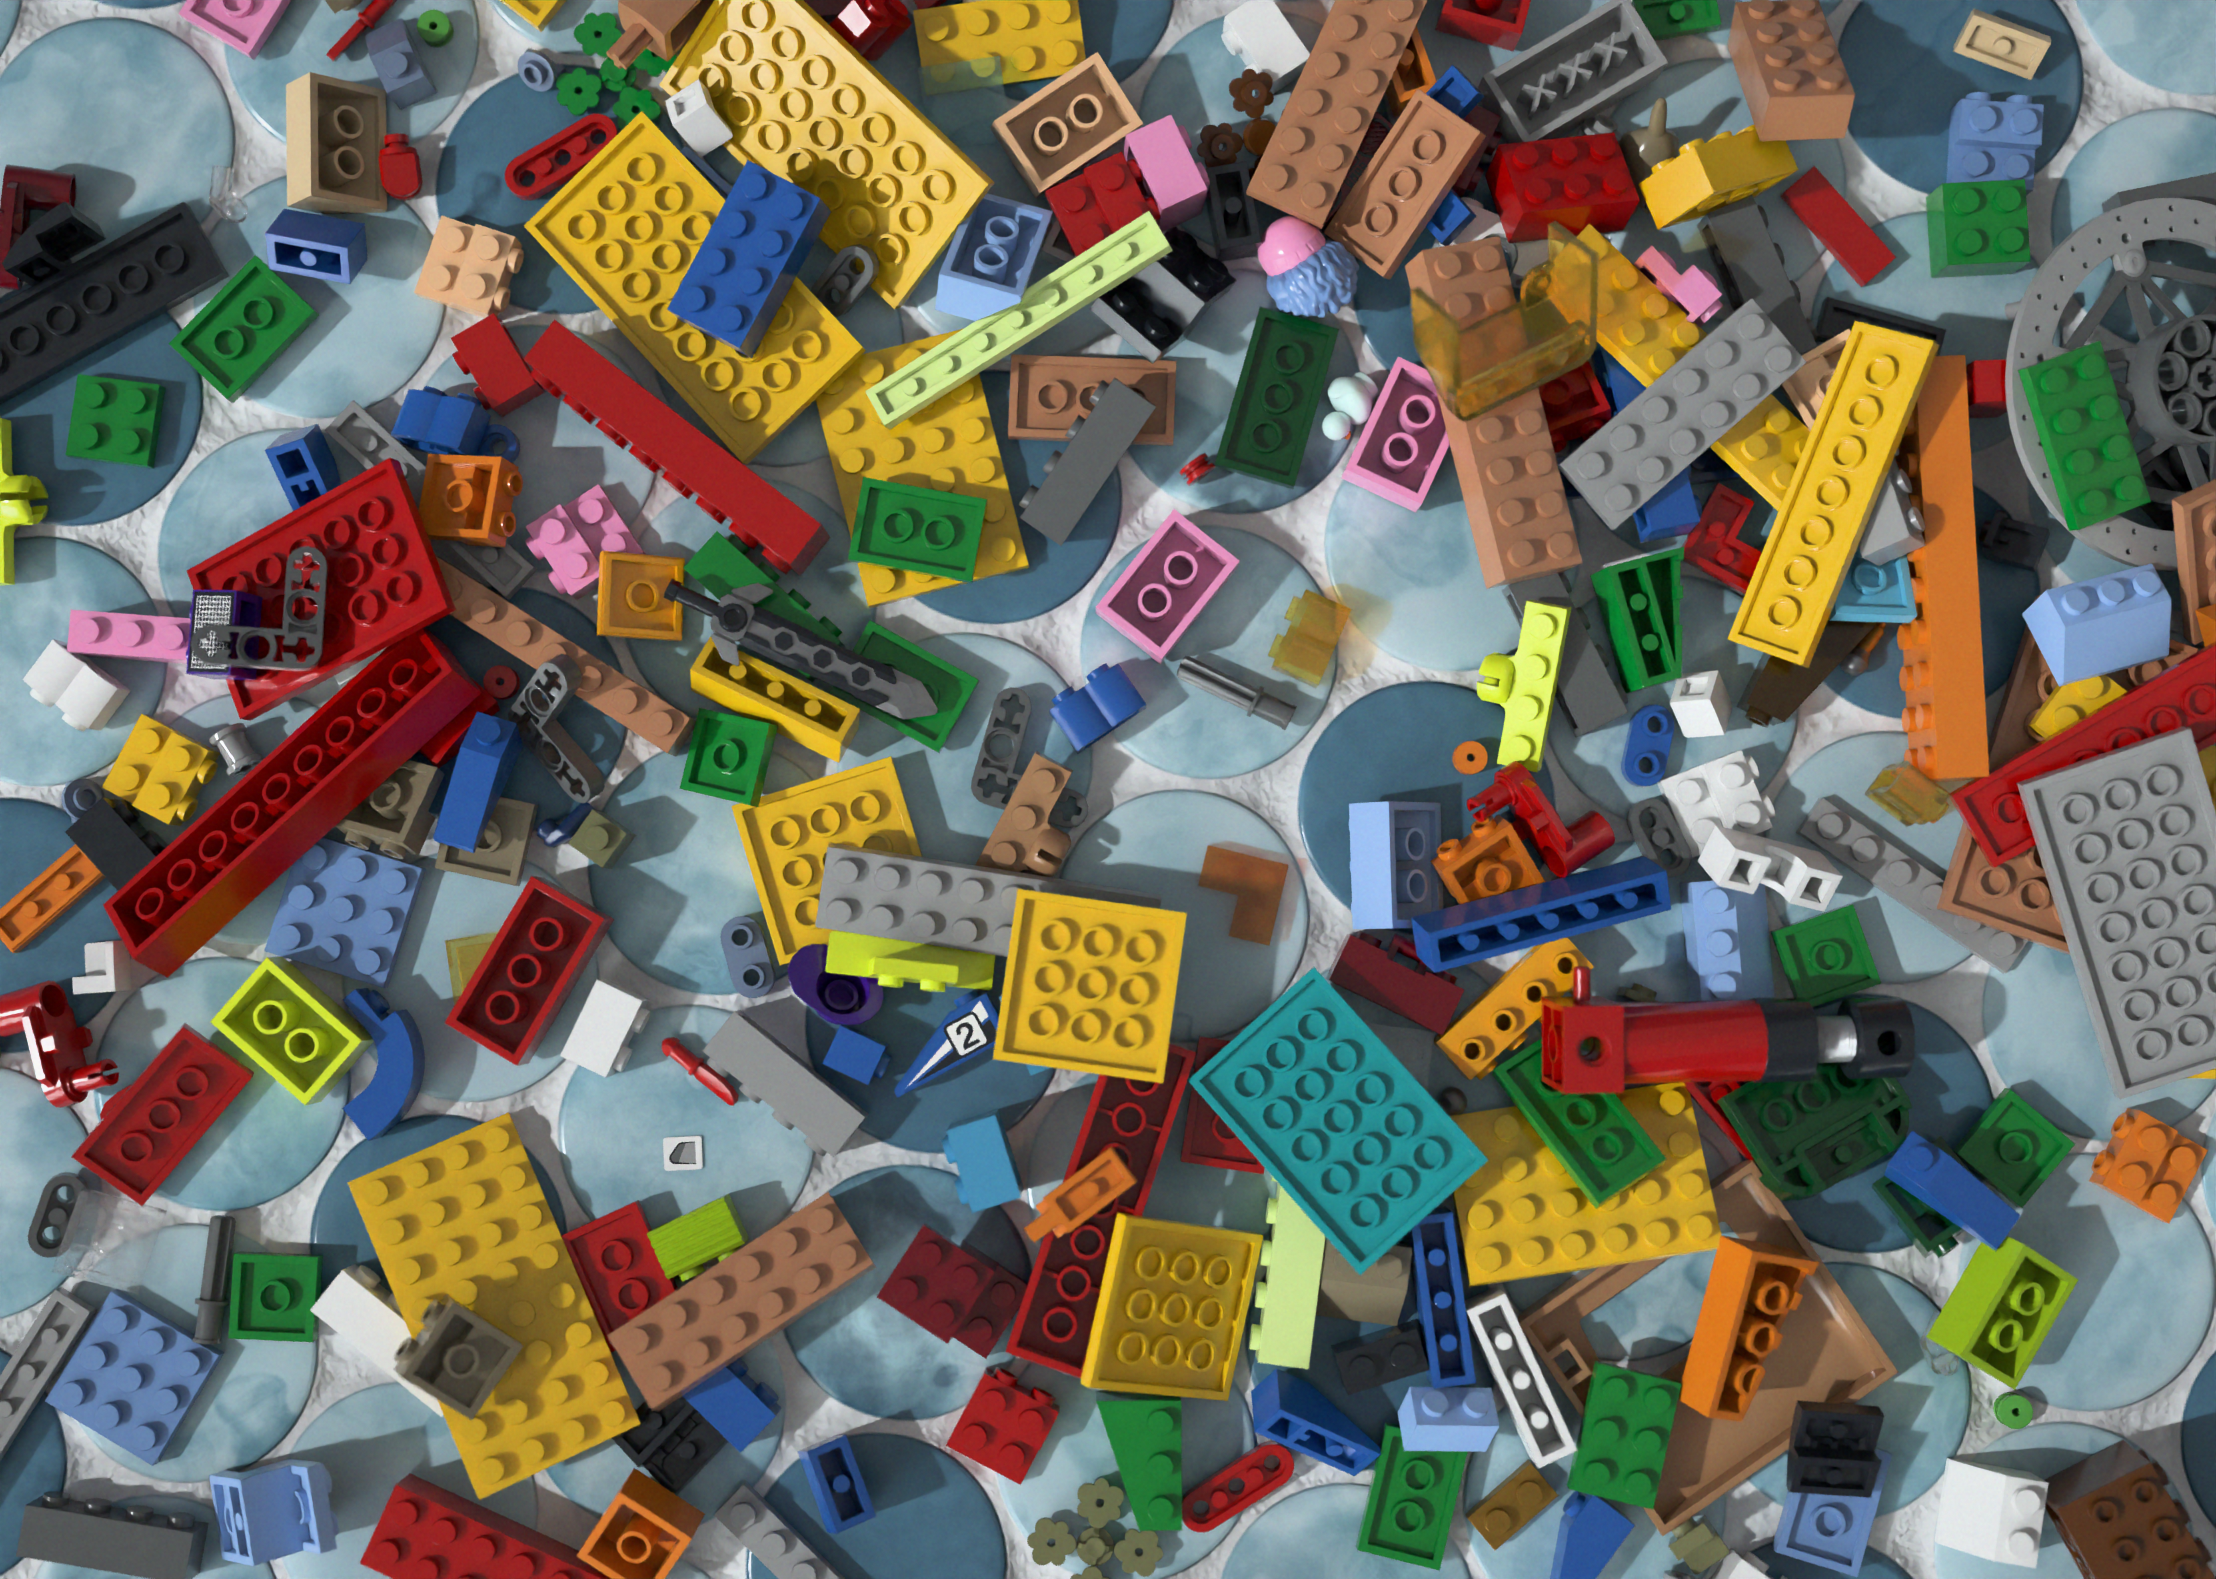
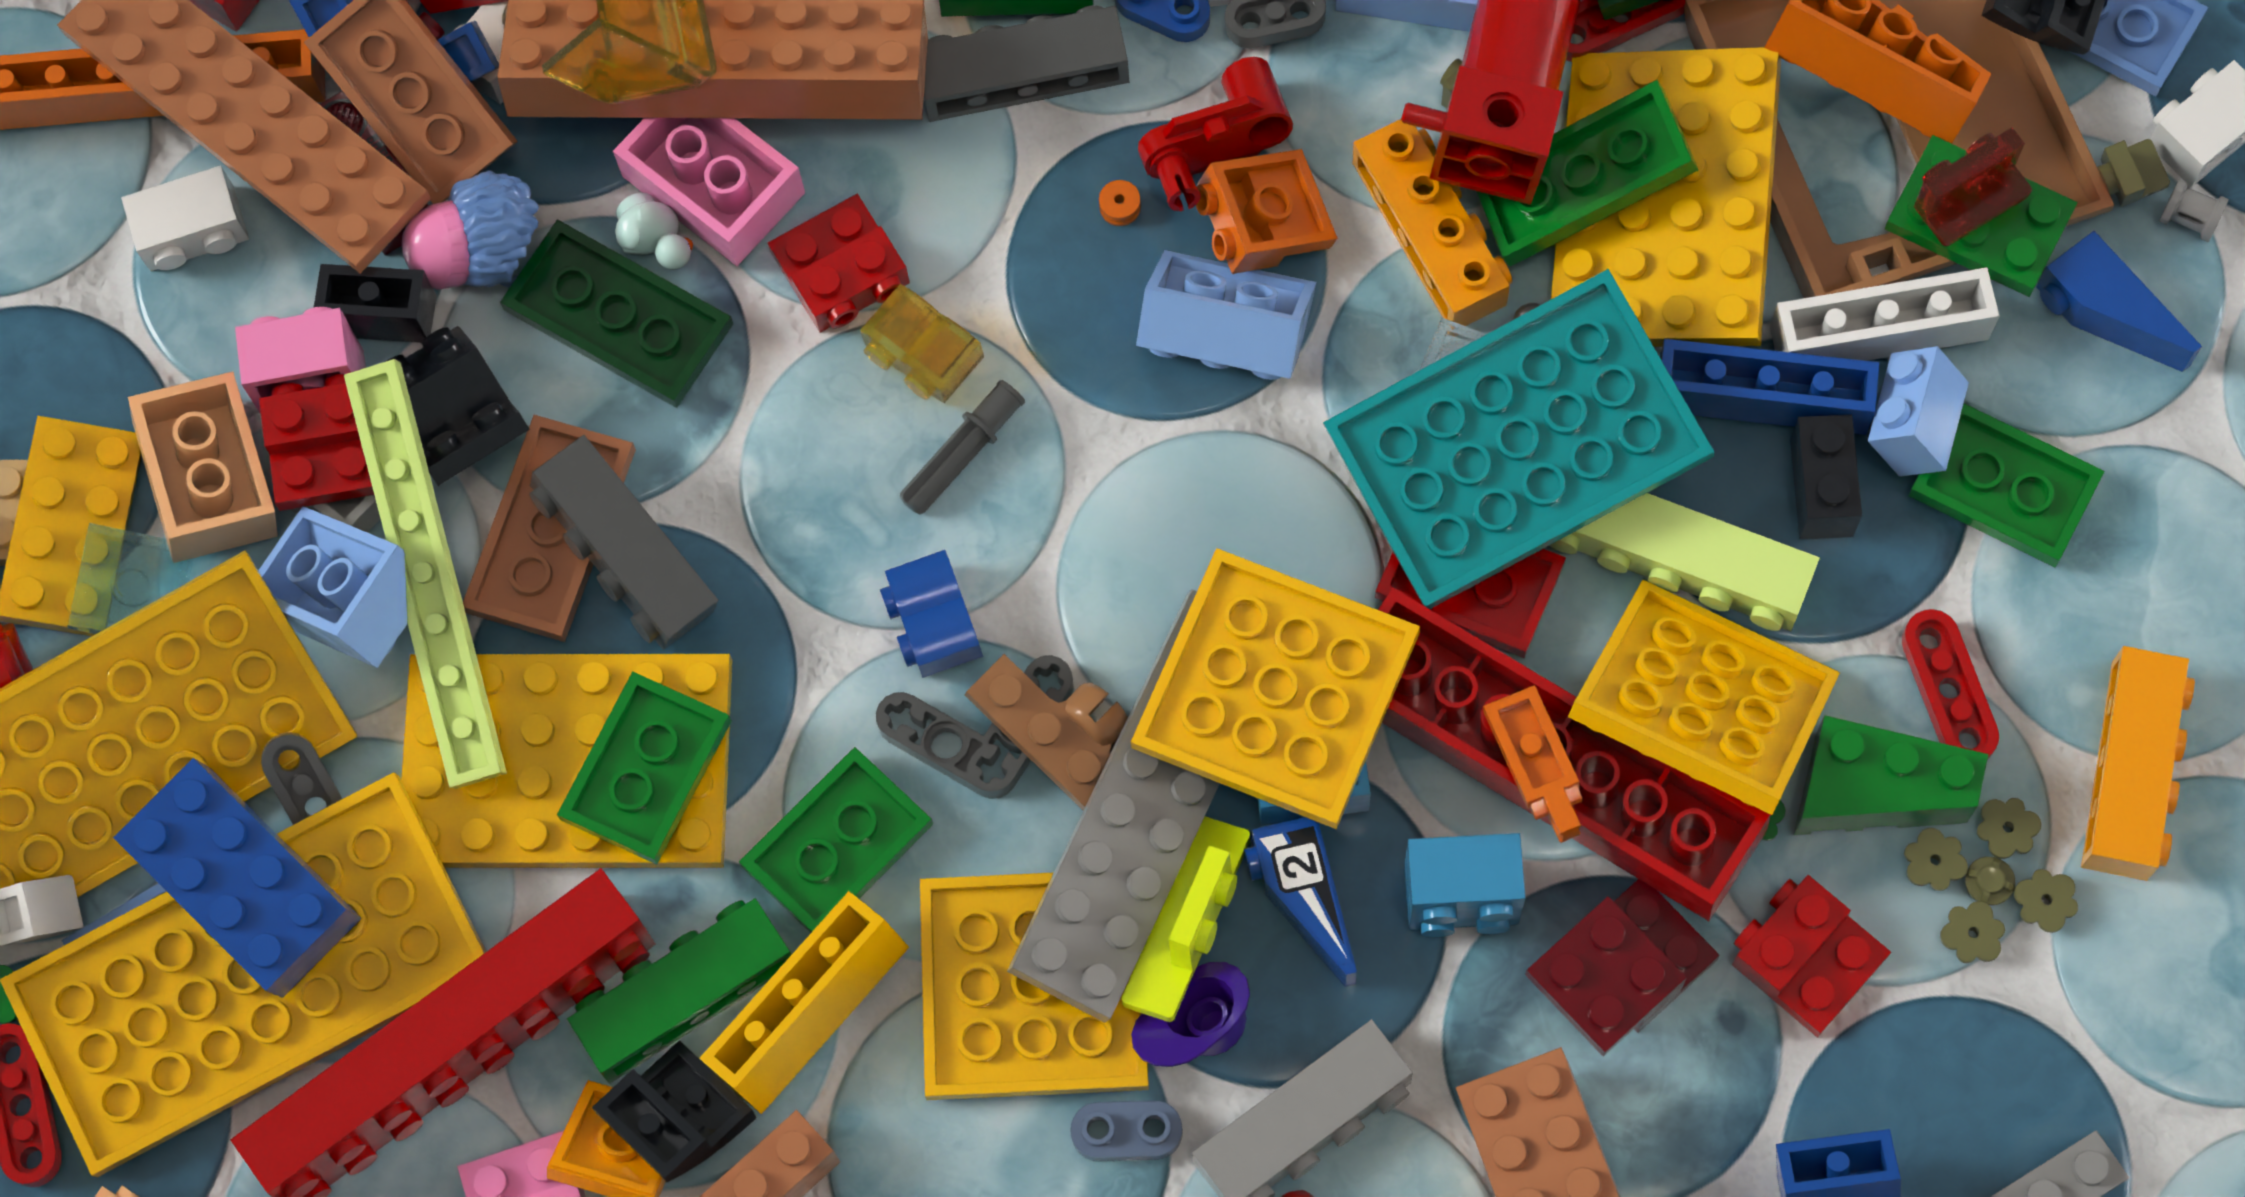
camera: 65 degrees left, 15 degrees down
(664, 632) = (674, 1112): none -> black slope
(728, 757) = (861, 1082): green plate -> none
(801, 649) = (689, 1012): sword -> none
(857, 1055) = (1289, 1017): blue brick -> none
(1167, 586) = (808, 489): bright pink brick -> none
(1197, 469) = (674, 425): red piece -> none
(1256, 133) = (292, 248): reddish brown plant -> none
(1257, 888) = (1205, 485): clear orange plate -> none
(1309, 1423) = (1890, 577): blue slope -> none
(1362, 556) = (839, 263): none -> red plate
(1367, 1297) = (1741, 476): dark tan slope -> none
(1409, 993) = (1385, 337): dark red piece -> none
(1511, 1505) = (2042, 374): pearl gold plate -> none
(1527, 683) = (1048, 107): neon yellow plate -> none
(1540, 913) = (1328, 157): blue brick -> none
(1632, 1432) = (1974, 188): none -> clear red bracket

